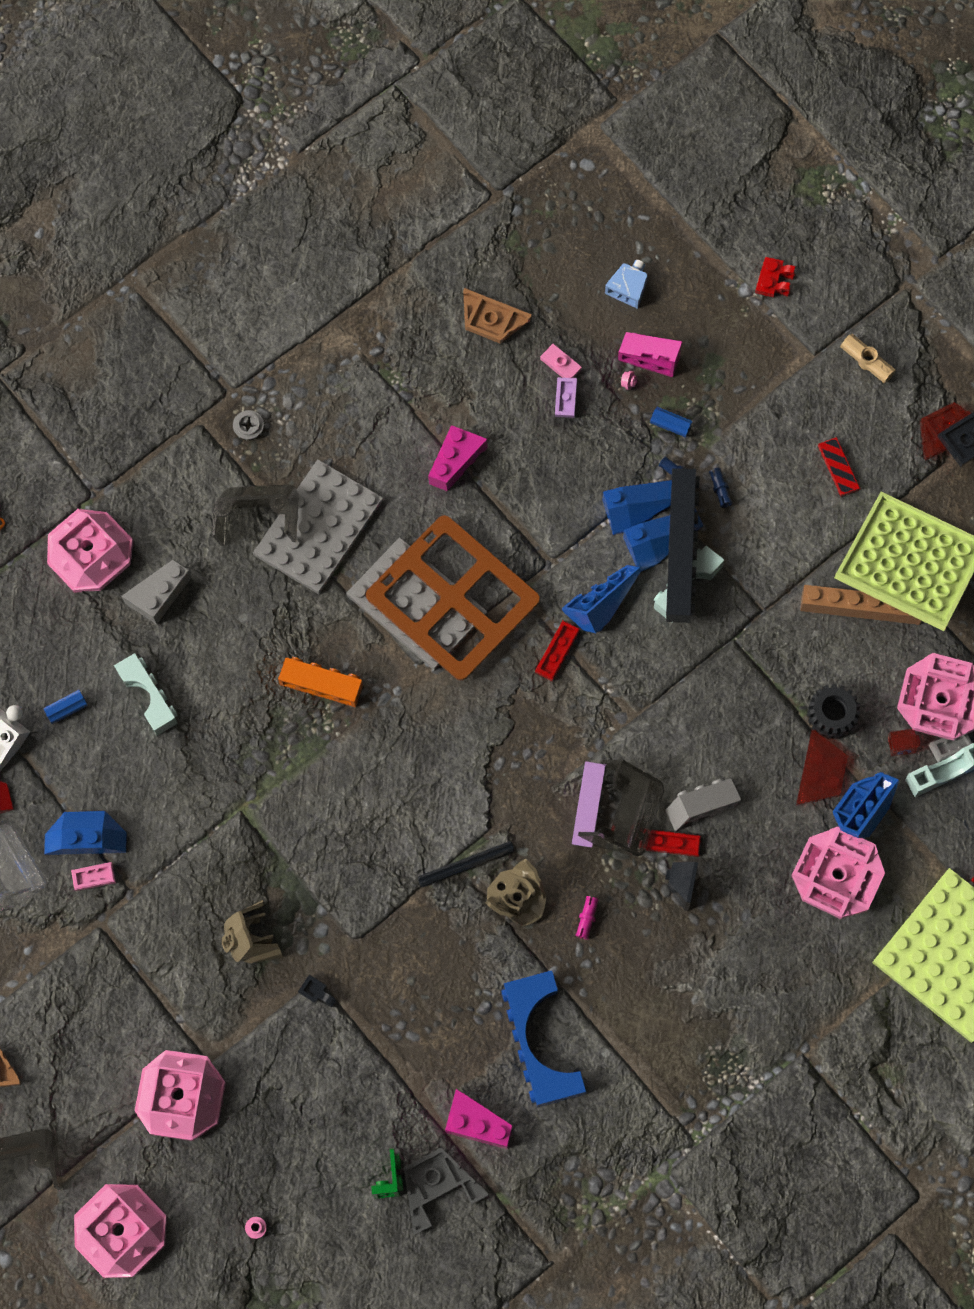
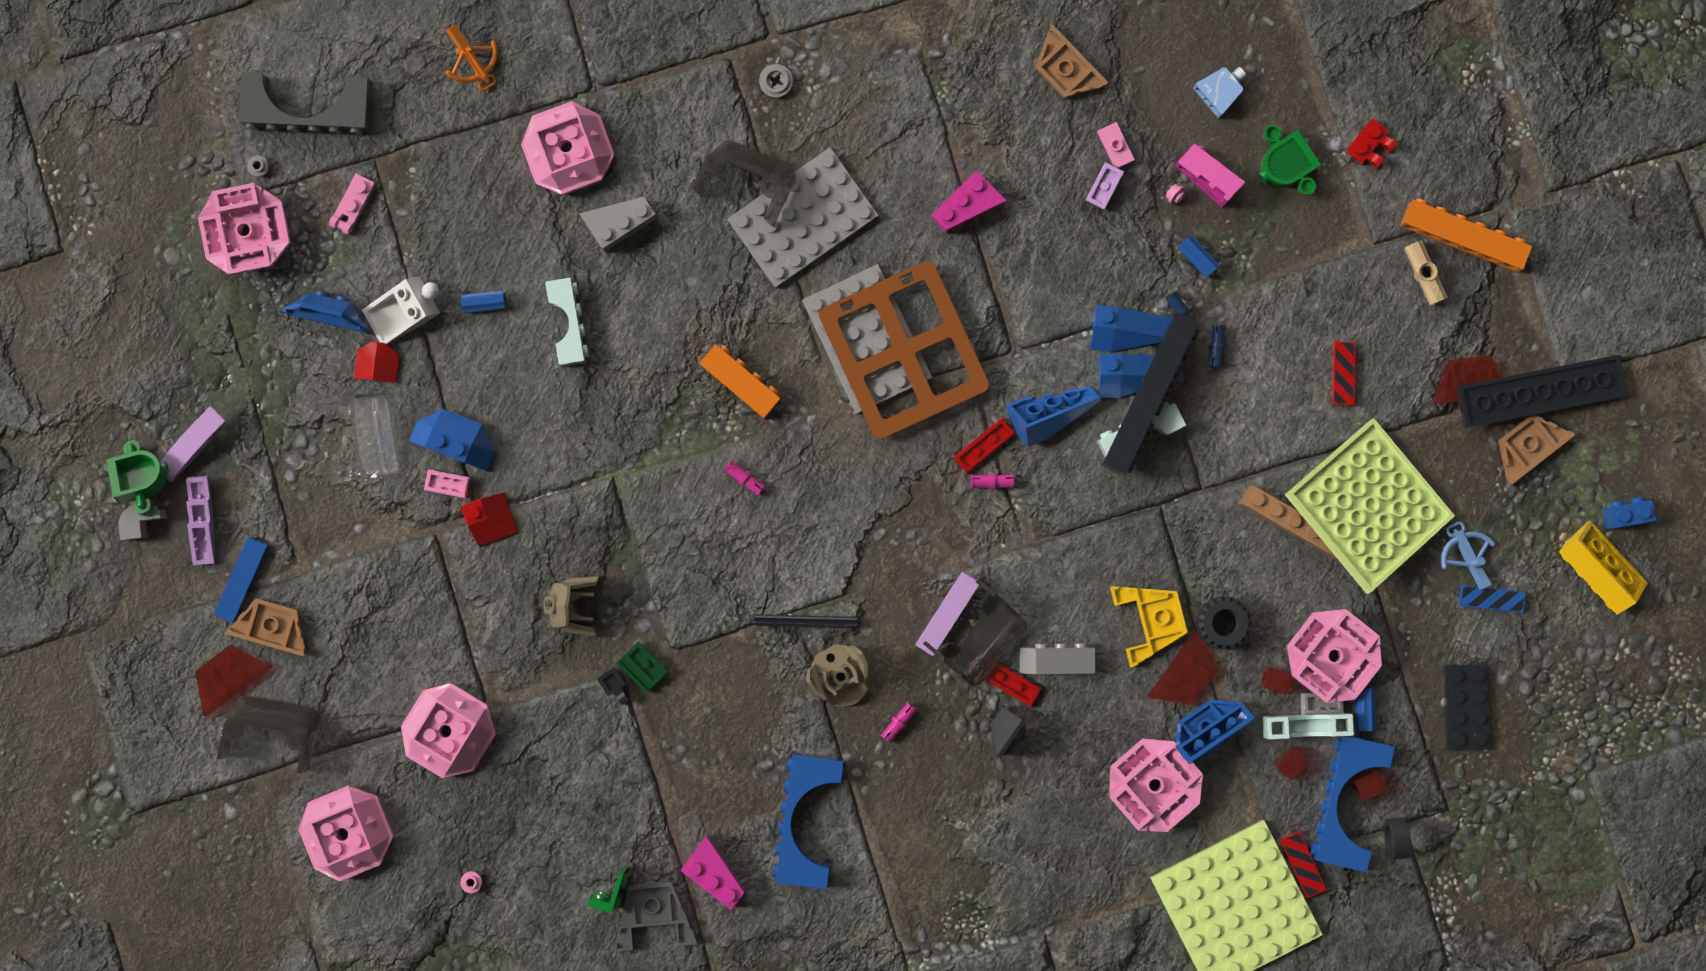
camera: 20 degrees right, 15 degrees up
(143, 891) = (489, 518): none -> red slope
(335, 965) = (642, 667): none -> dark green plate
(358, 762) = (744, 477): none -> dark pink pin
(577, 676) = (992, 481): none -> dark pink pin
(711, 316) = (1288, 161): none -> green piece
(775, 730) = (1160, 619): none -> yellow wing
(887, 316) = (1465, 235): none -> orange brick
(948, 807) = (1291, 762): none -> clear red brick

